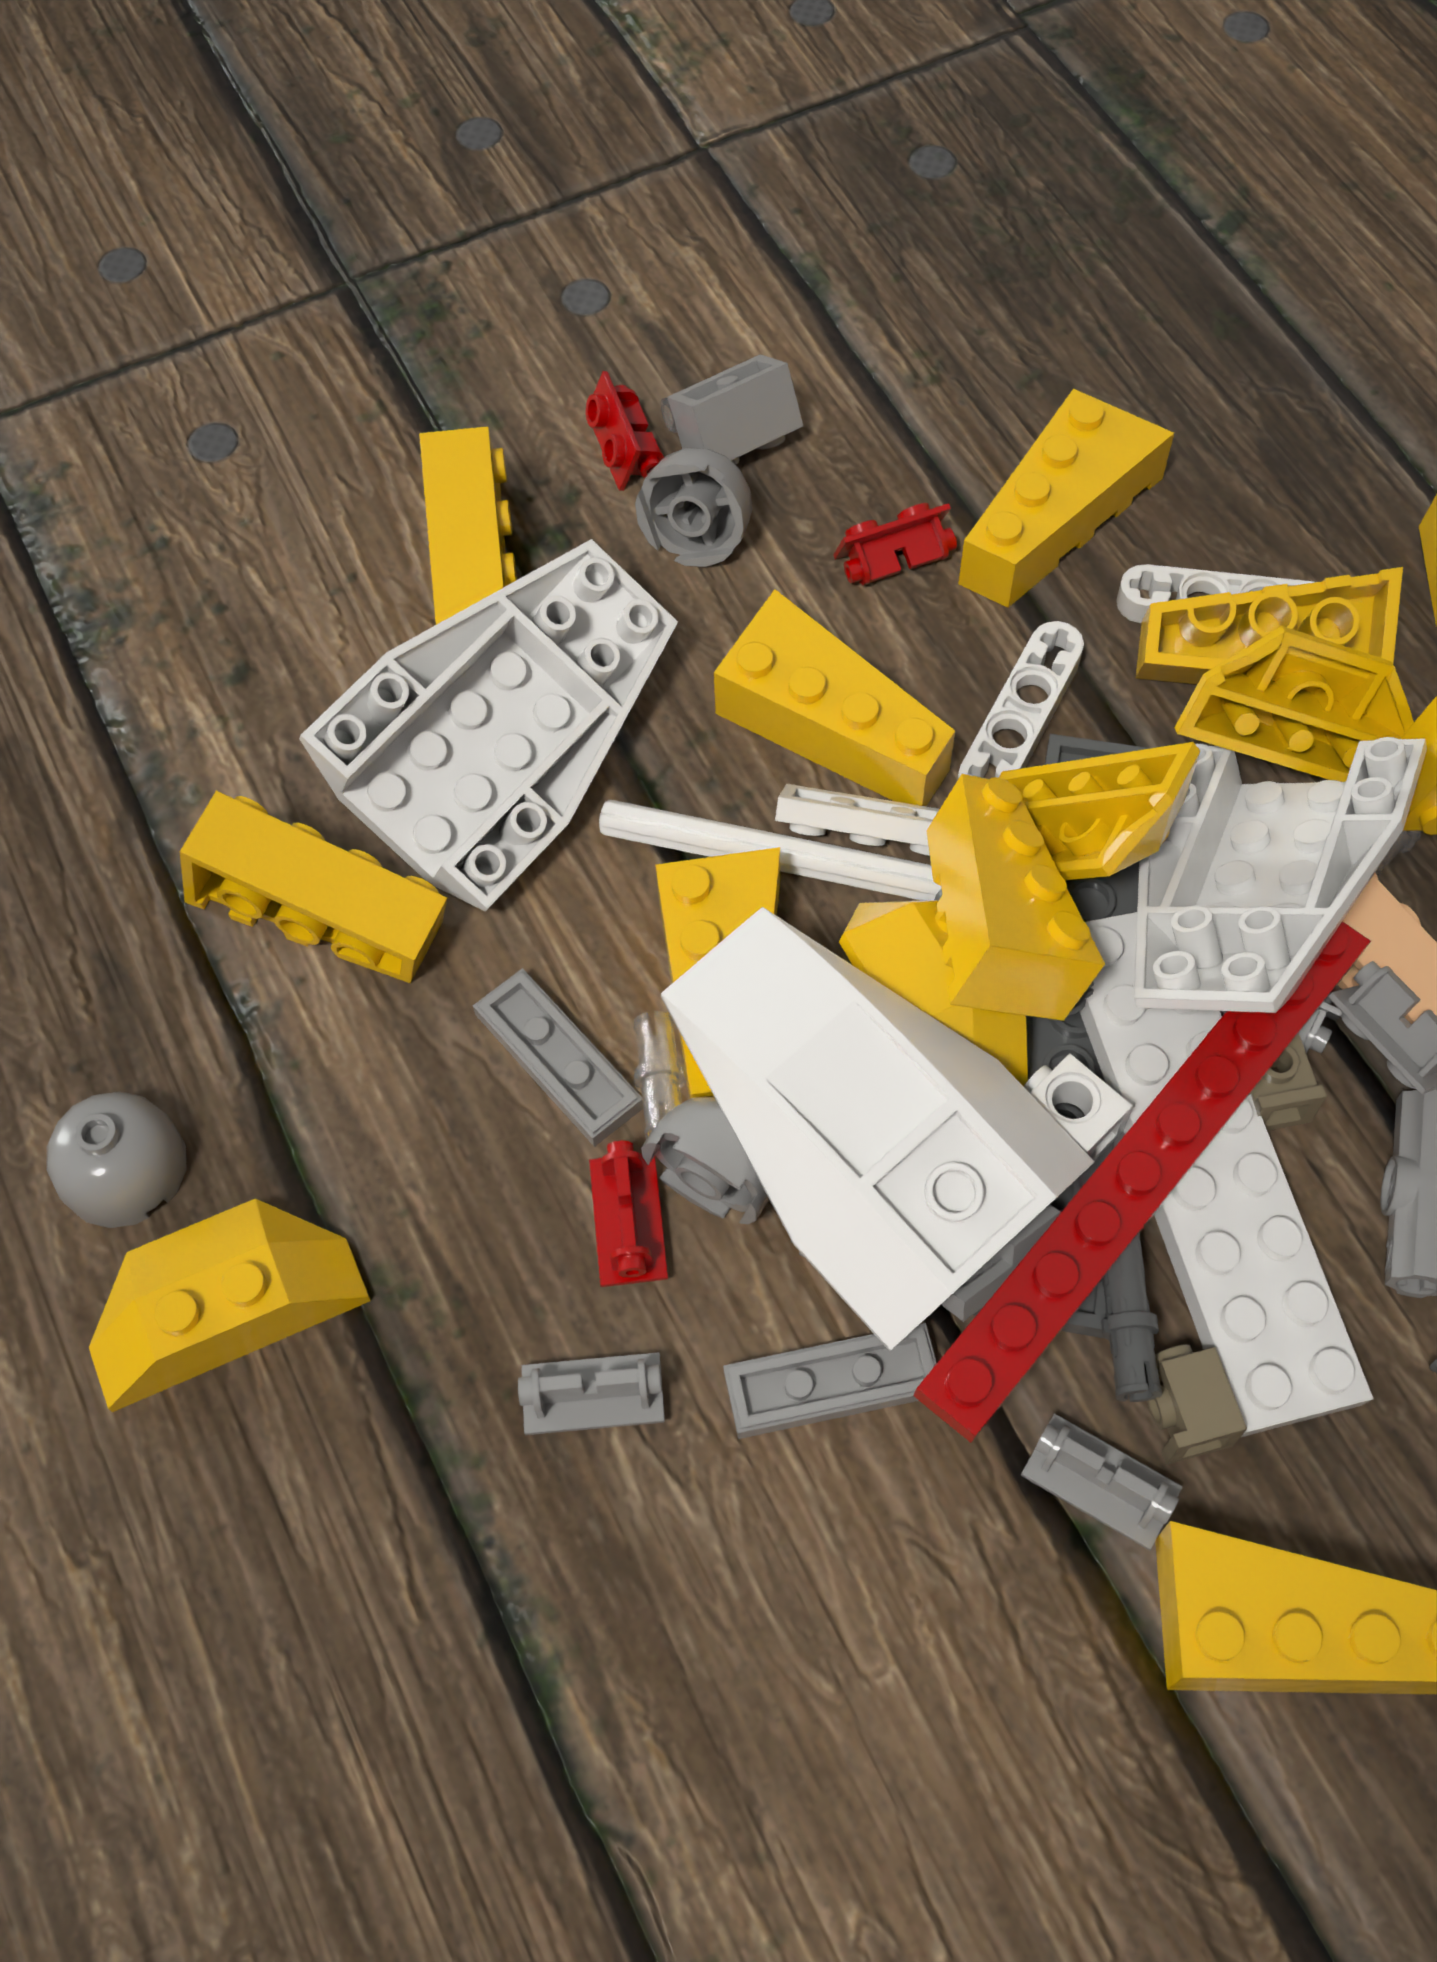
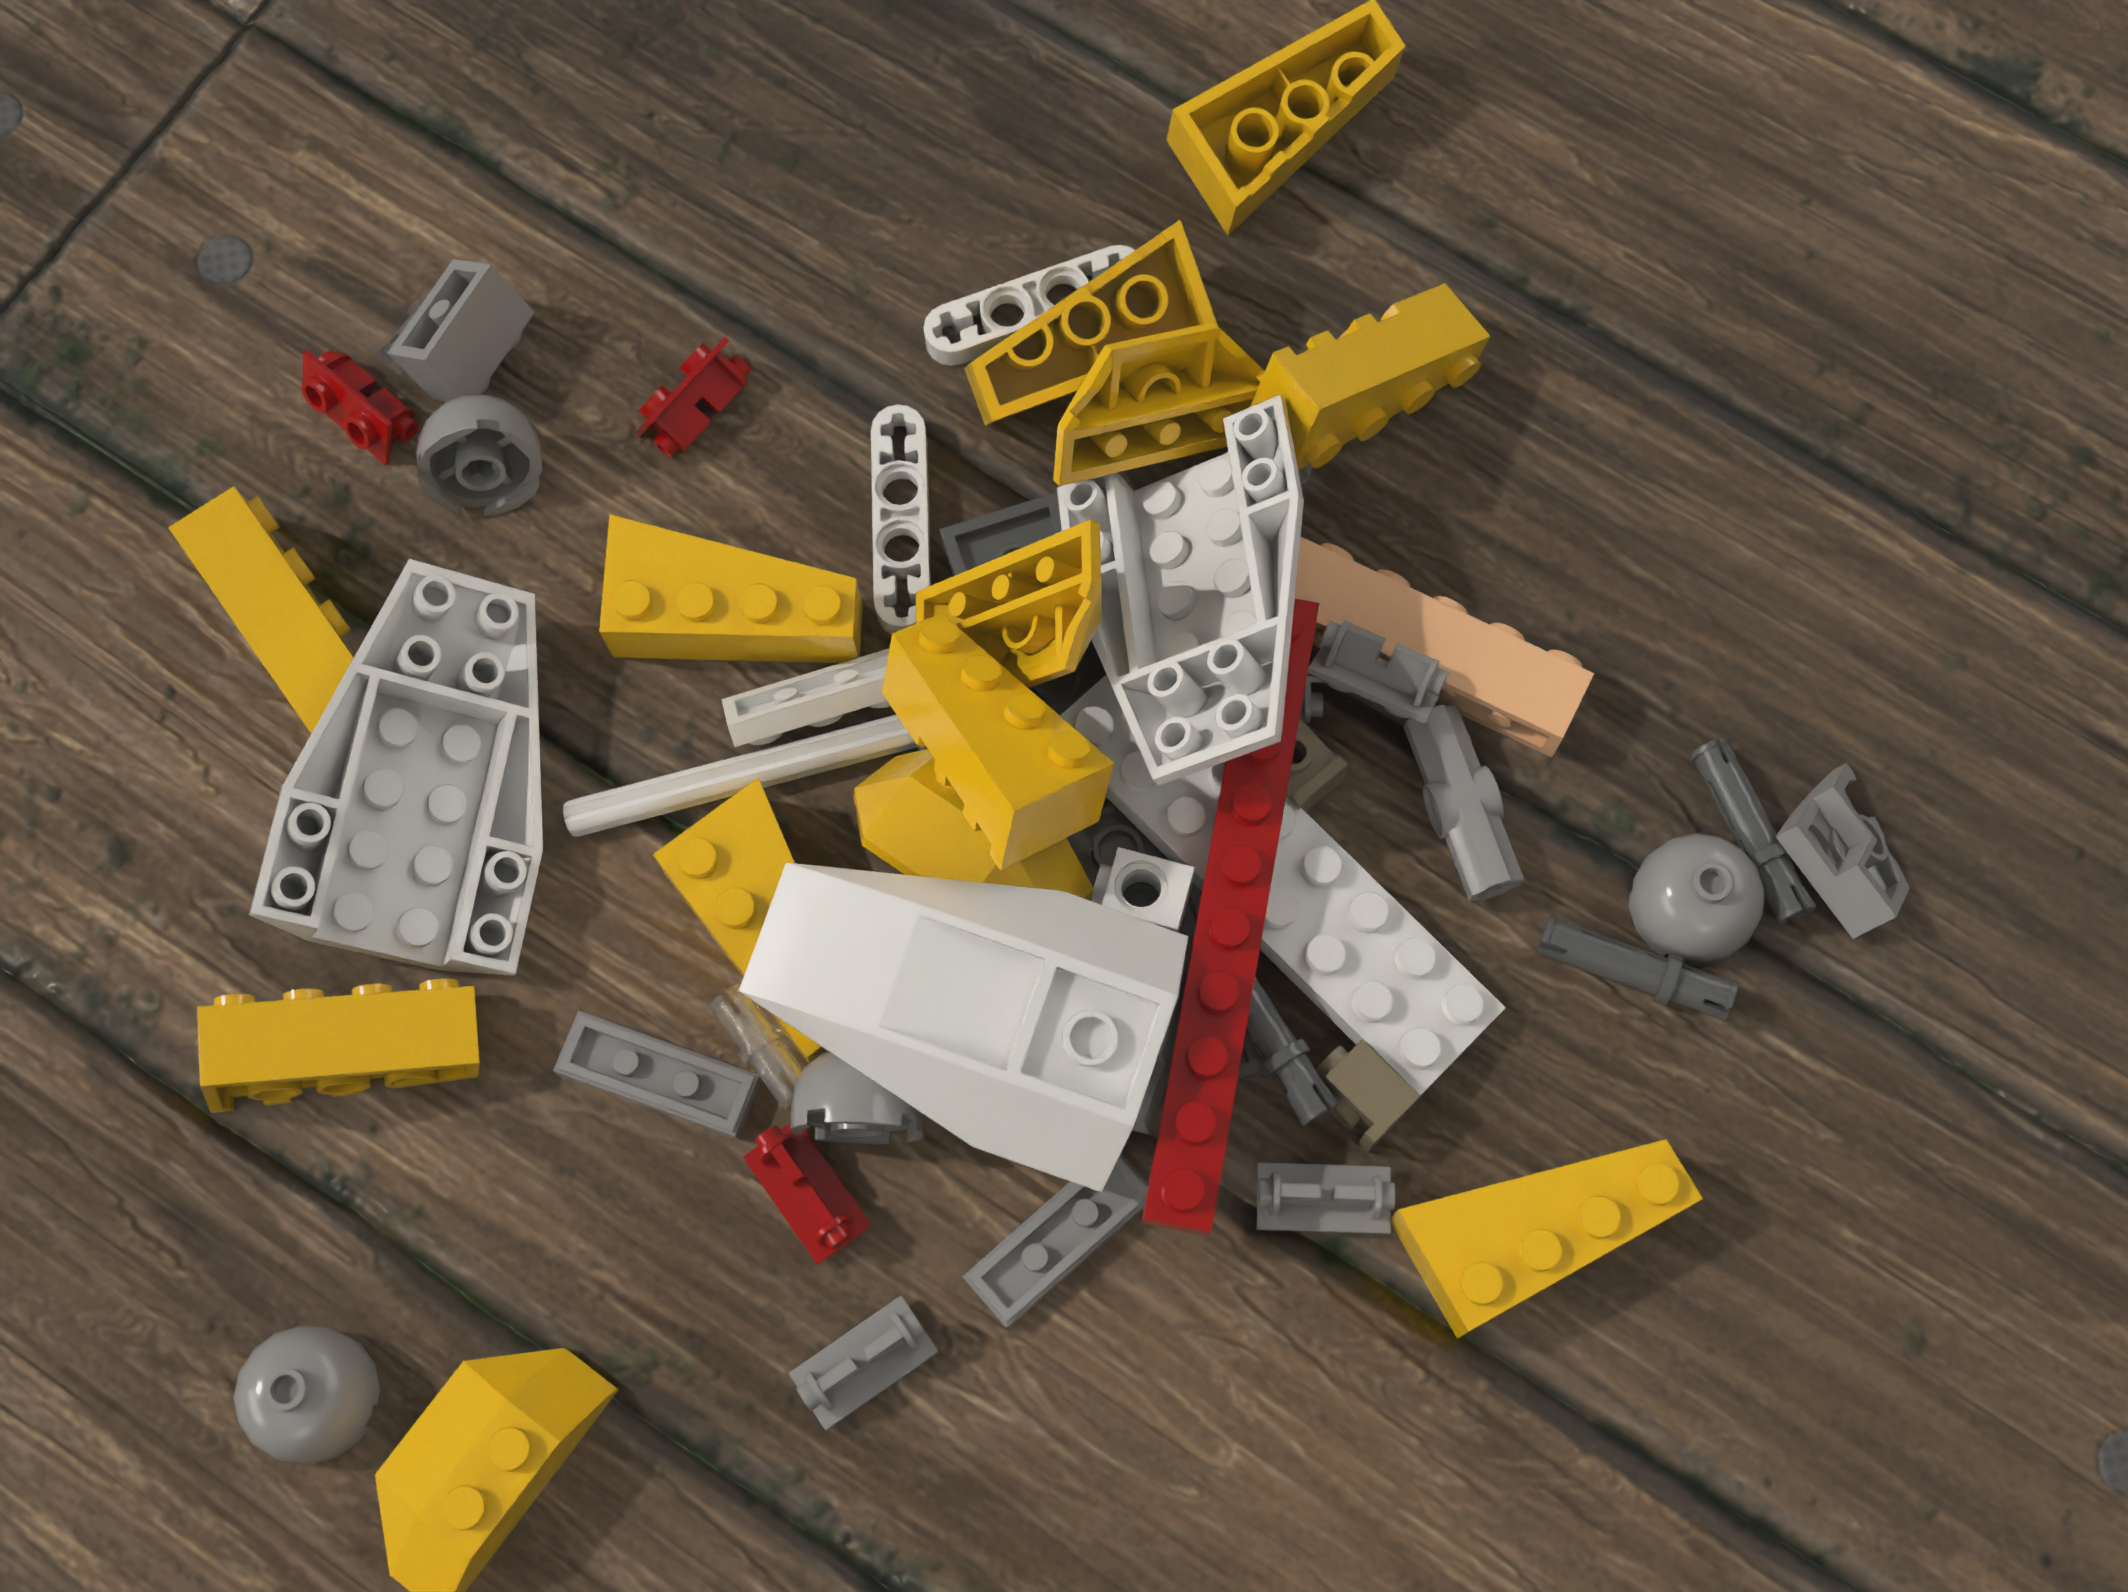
camera: 30 degrees left, 10 degrees up
(1063, 489) = (826, 253): yellow wedge -> none

